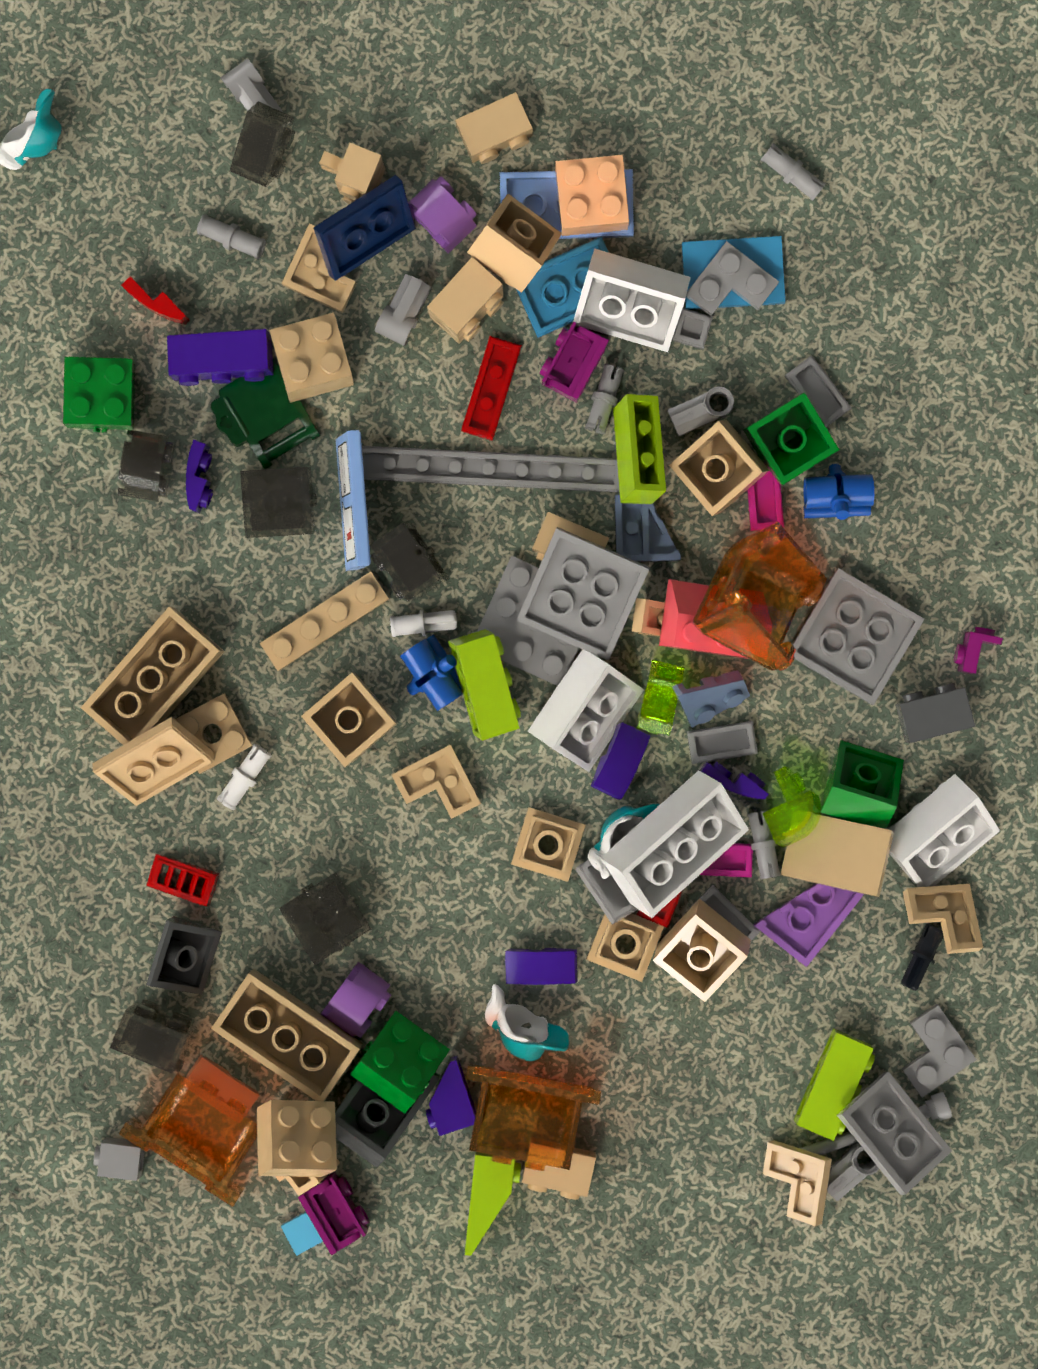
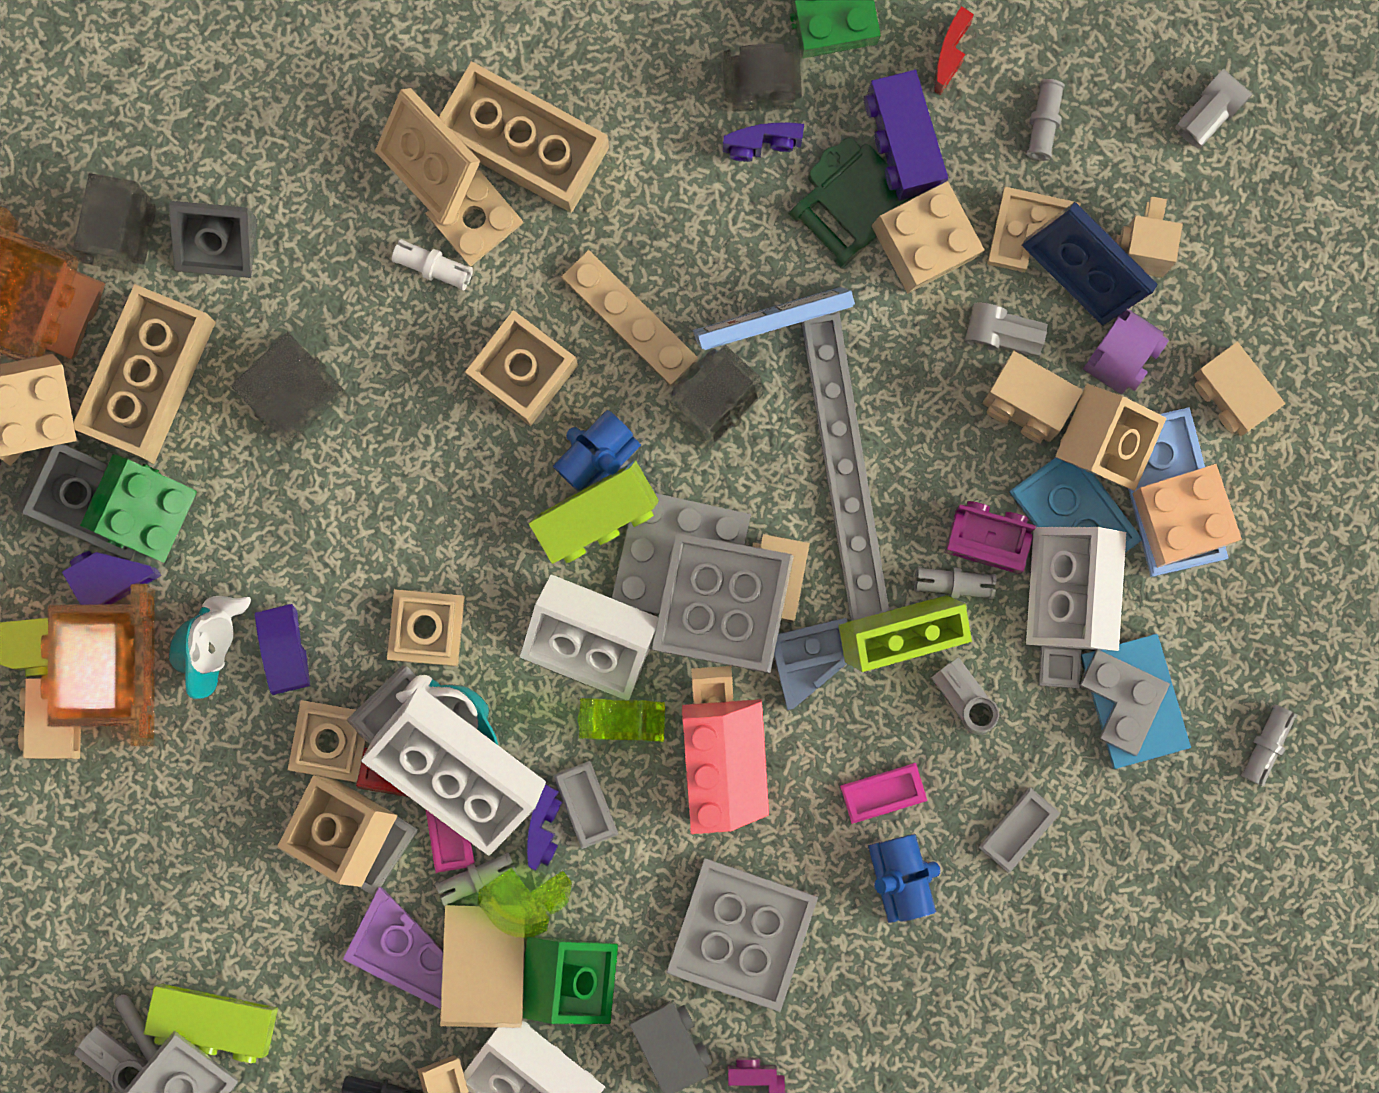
camera: 80 degrees right, 5 degrees down
(208, 888) = (300, 251): red slope -> none
(262, 144) = (1158, 130): clear smoke brick -> none
(278, 502) = (753, 235): clear smoke brick -> none
(356, 1000) = (202, 446): medium lavender cylinder -> none
(423, 623) = (651, 430): white axle -> none
(441, 773) = (483, 487): tan plate -> none
(491, 388) = (938, 450): red tile -> none
(621, 761) = (539, 690): dark purple slope -> none
(712, 697) = (635, 779): sand blue wing -> none
(719, 467) = (904, 731): tan brick -> none
(758, 596) = (763, 809): clear orange windscreen -> none
(791, 439) = (956, 808): green slope -> none
(808, 1179) = (96, 1012): tan plate -> none

